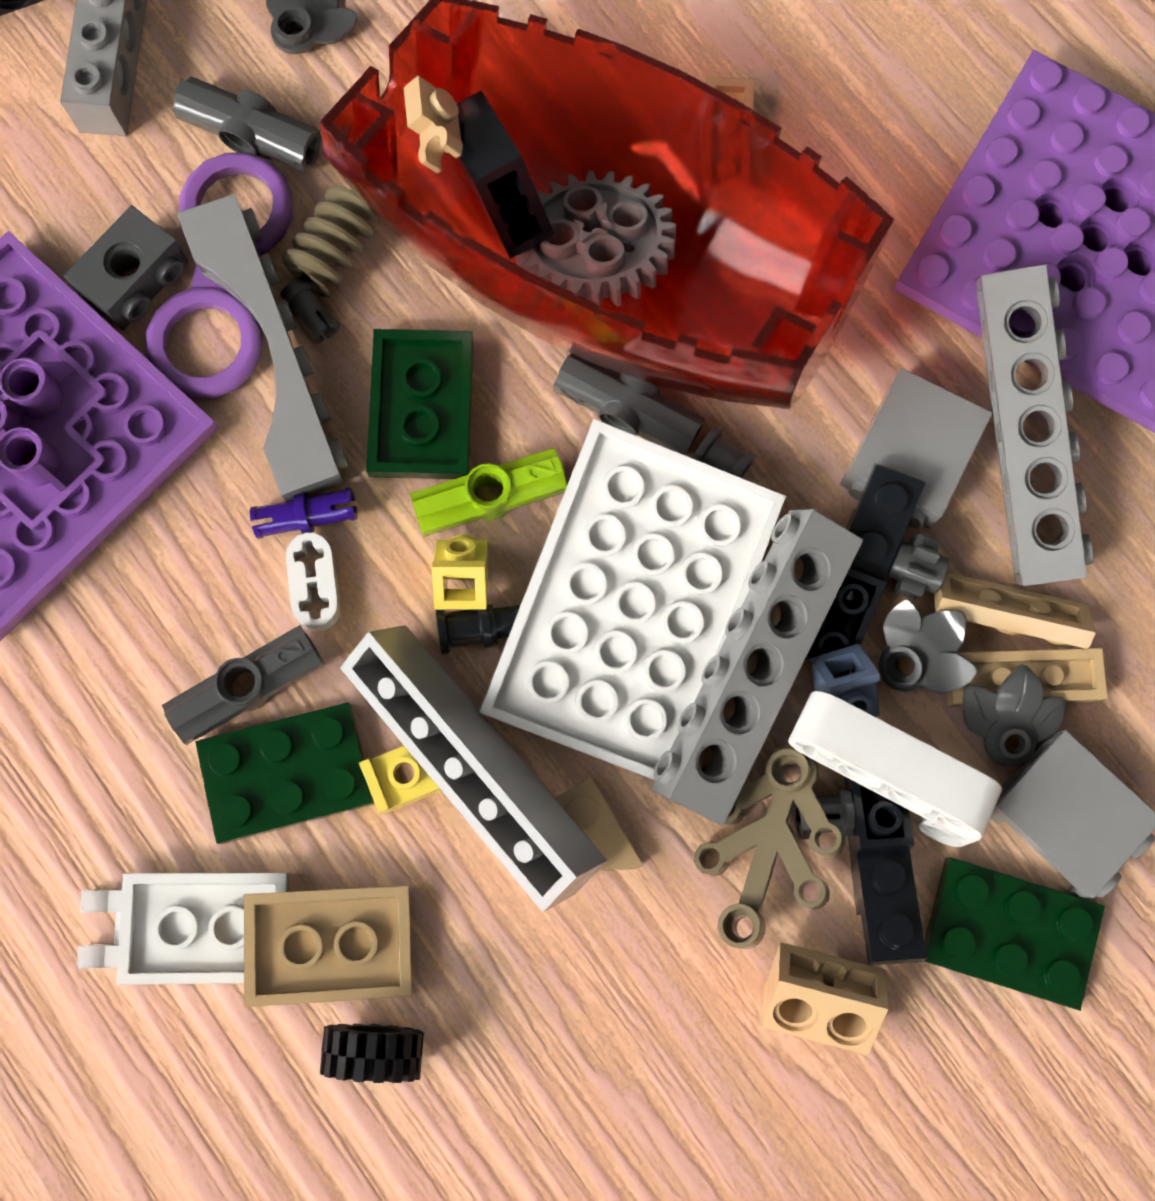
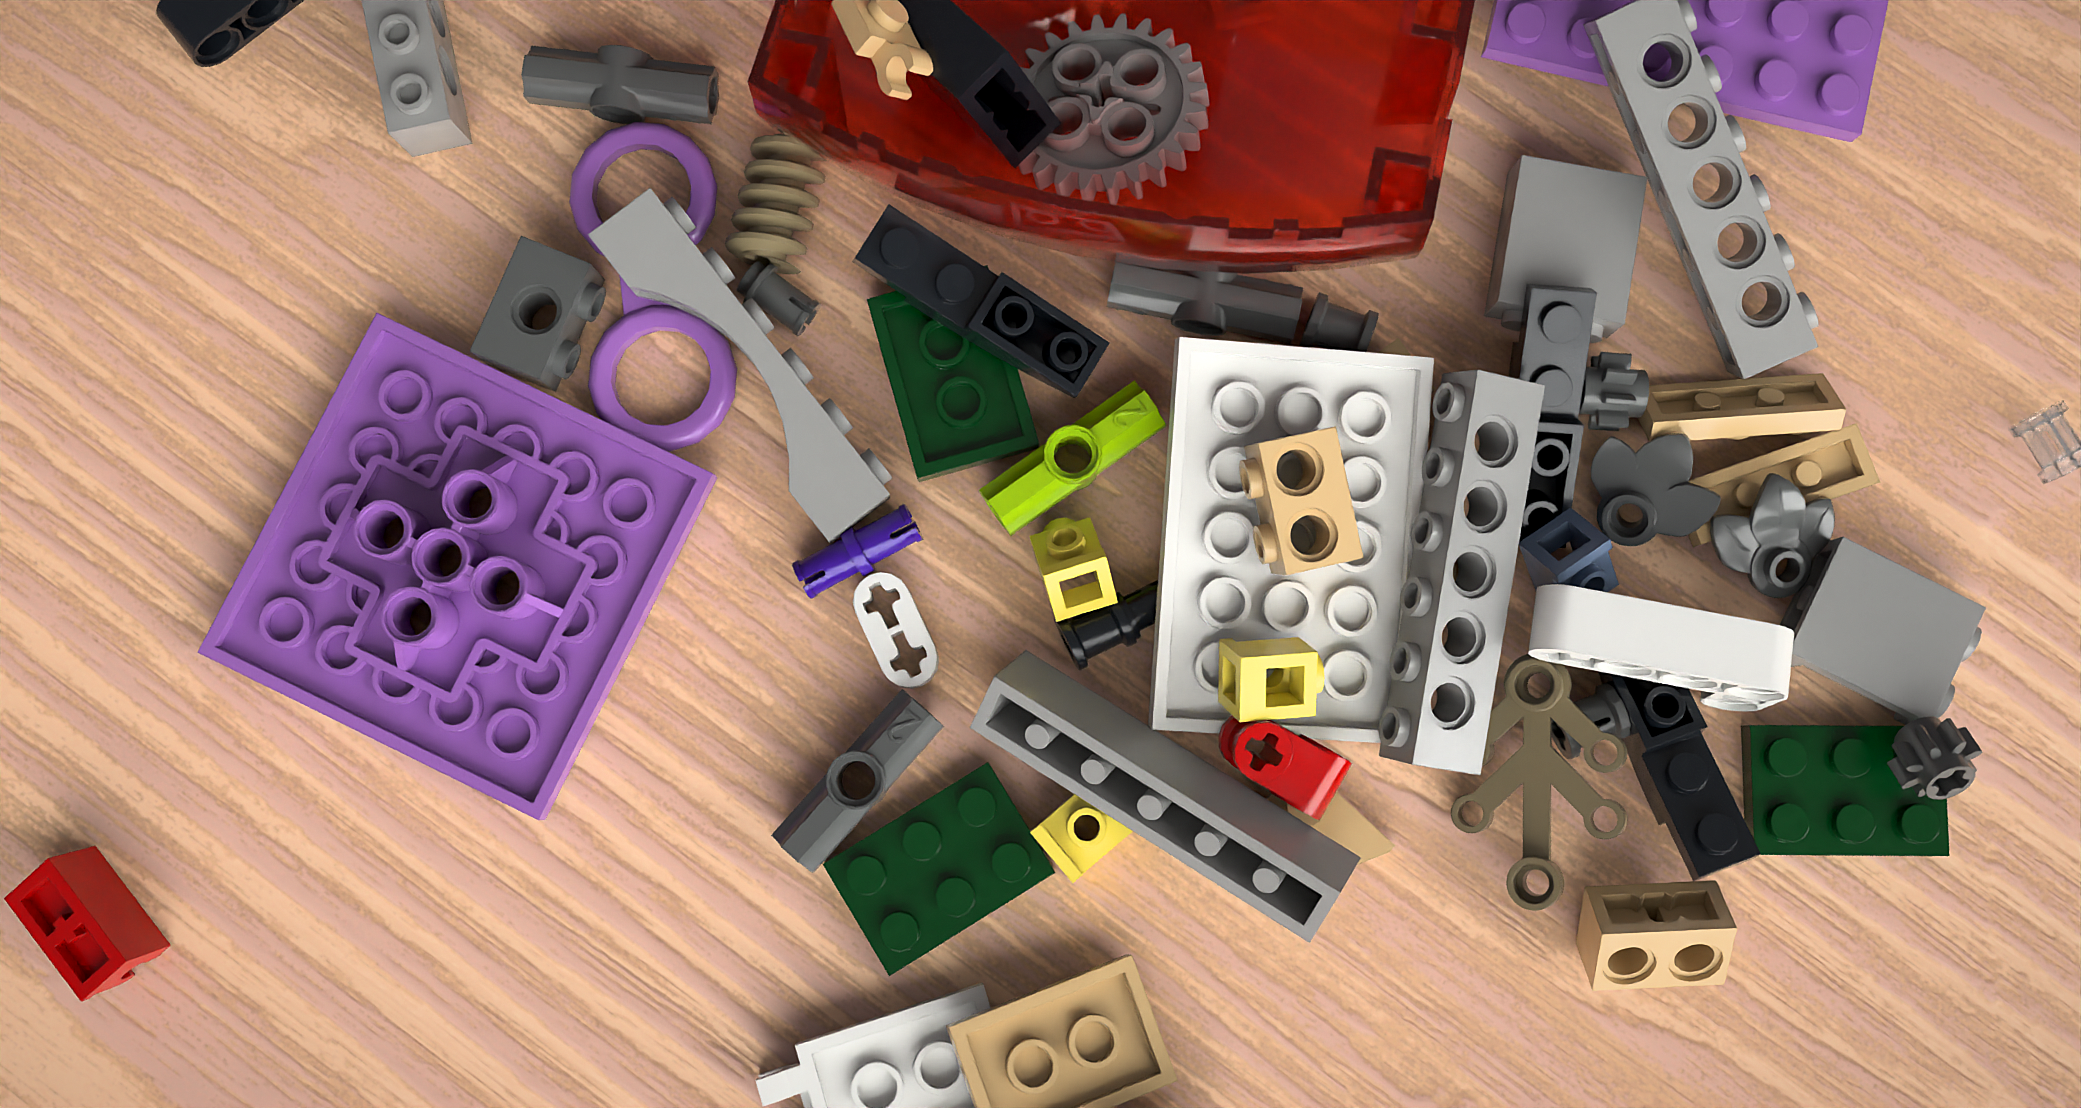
camera: 10 degrees left, 5 degrees up
(453, 353) = (979, 304): none -> black slope
(578, 774) = (1288, 764): none -> red piece
(588, 716) = (1284, 694): none -> light yellow brick
(661, 572) = (1319, 496): none -> tan brick
(1087, 924) = (1934, 757): none -> dark grey gear

